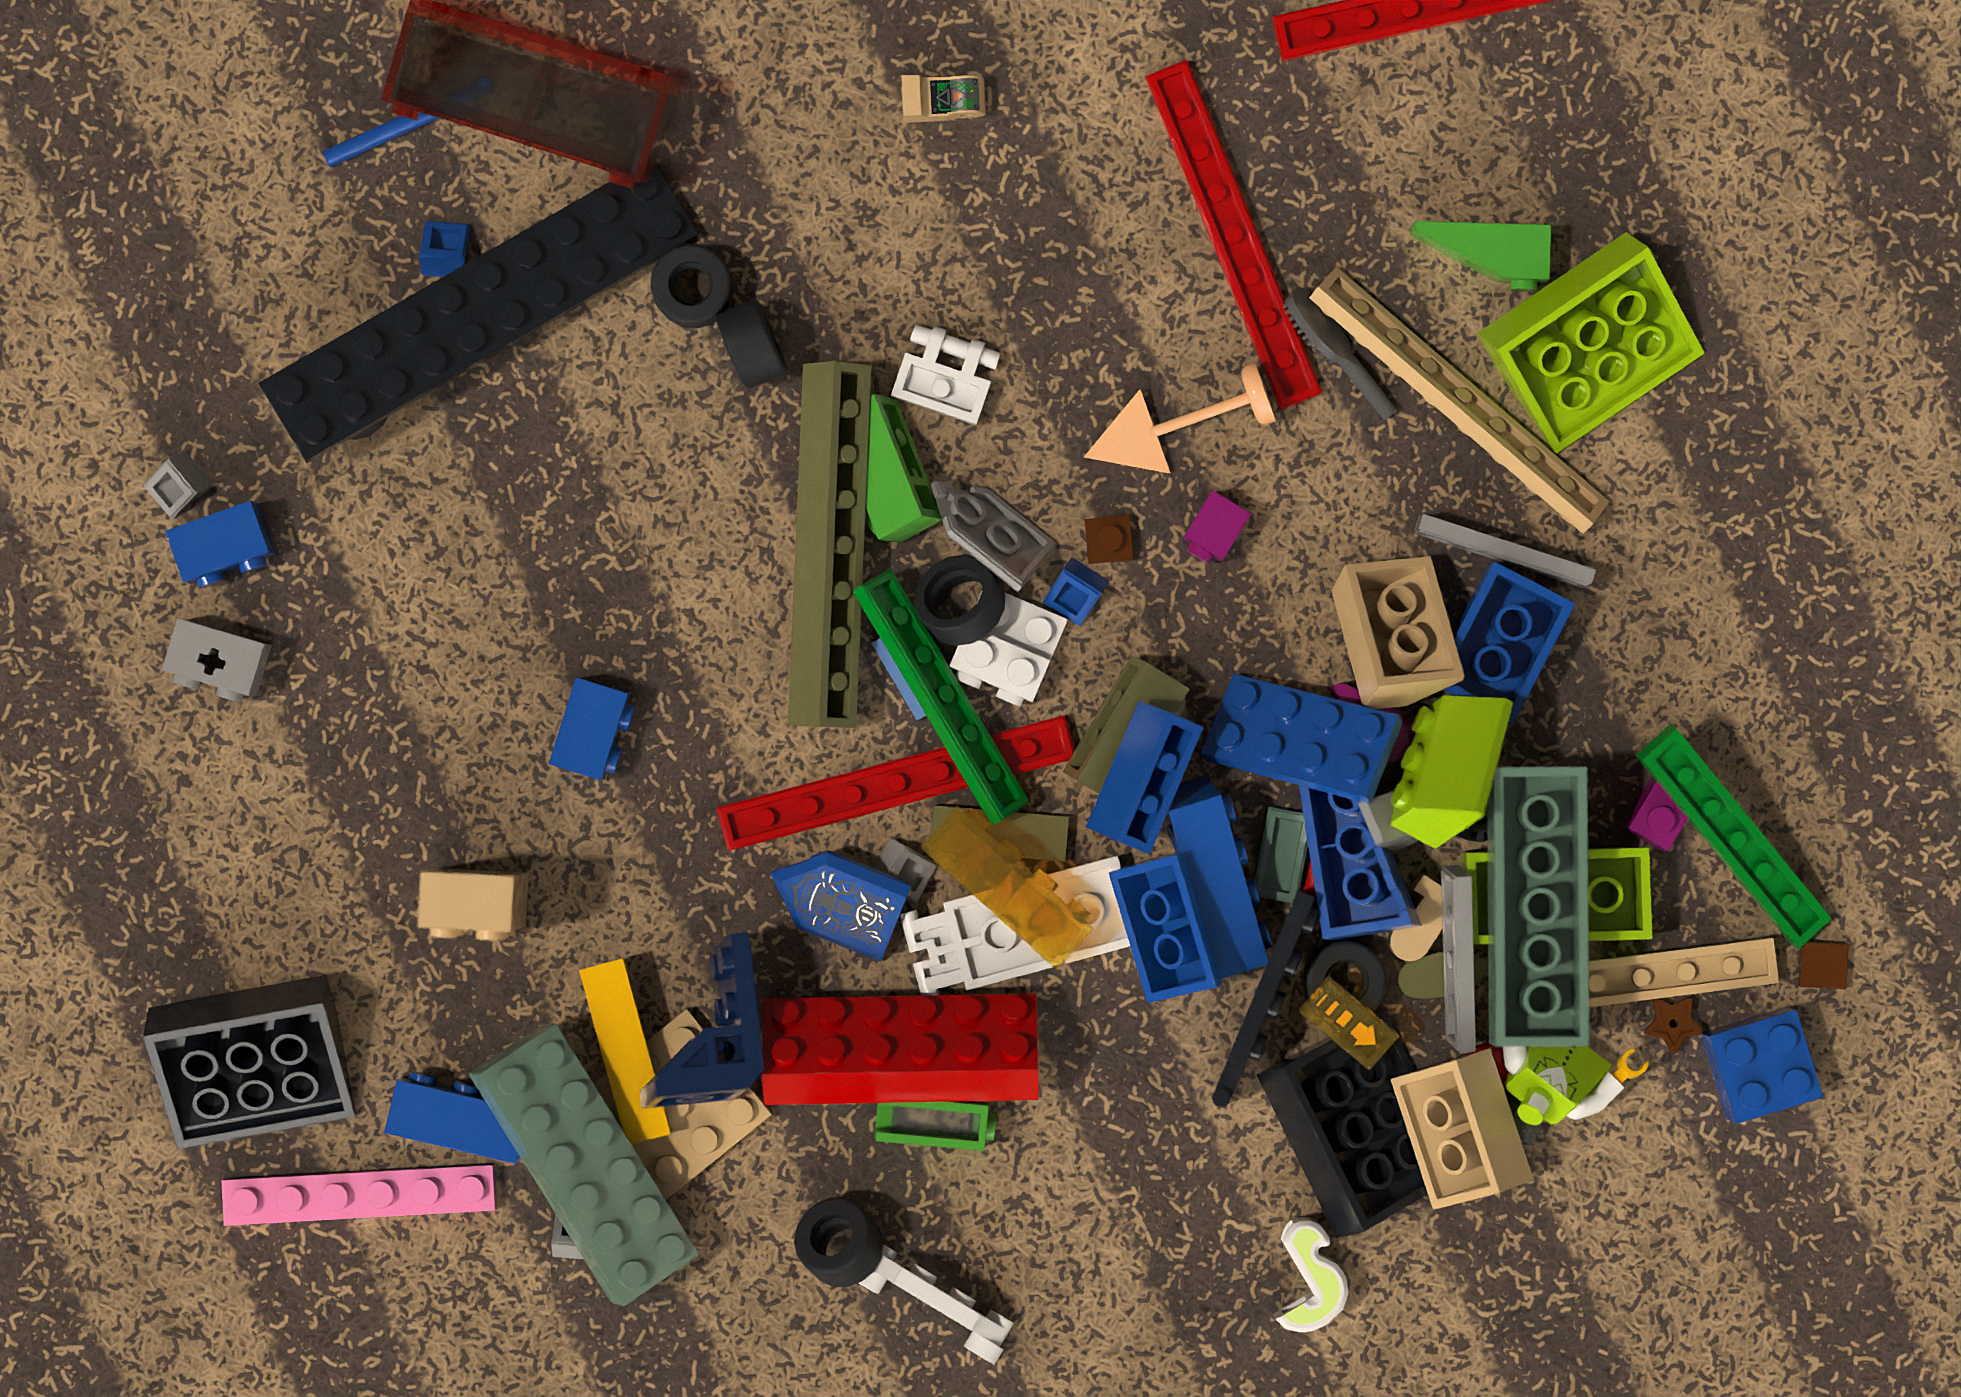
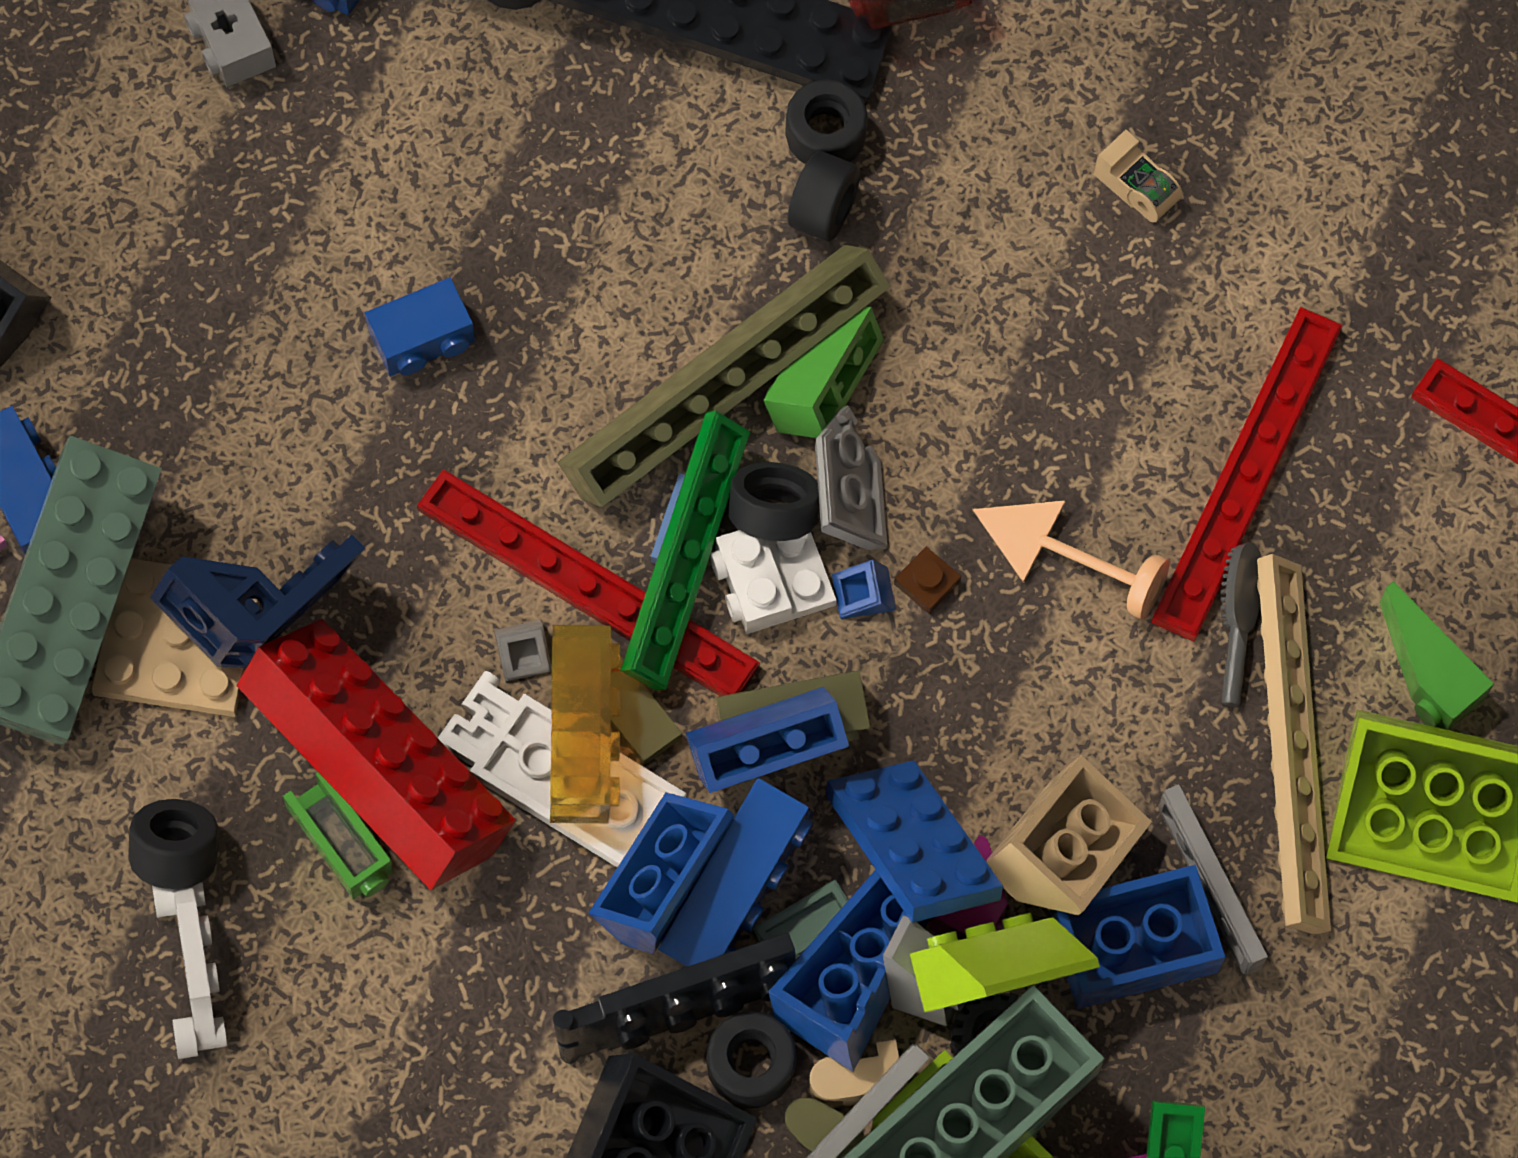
camera: 45 degrees right, 20 degrees down
(472, 900) = (206, 337): tan brick -> none
(623, 1048) = (197, 535): yellow tile -> none
(843, 901) = (455, 620): blue tile -> none
(941, 387) = (923, 360): white plate -> none
(1215, 528) = (1013, 645): magenta brick -> none
(1348, 1023) = (719, 1082): clear yellow tile -> none

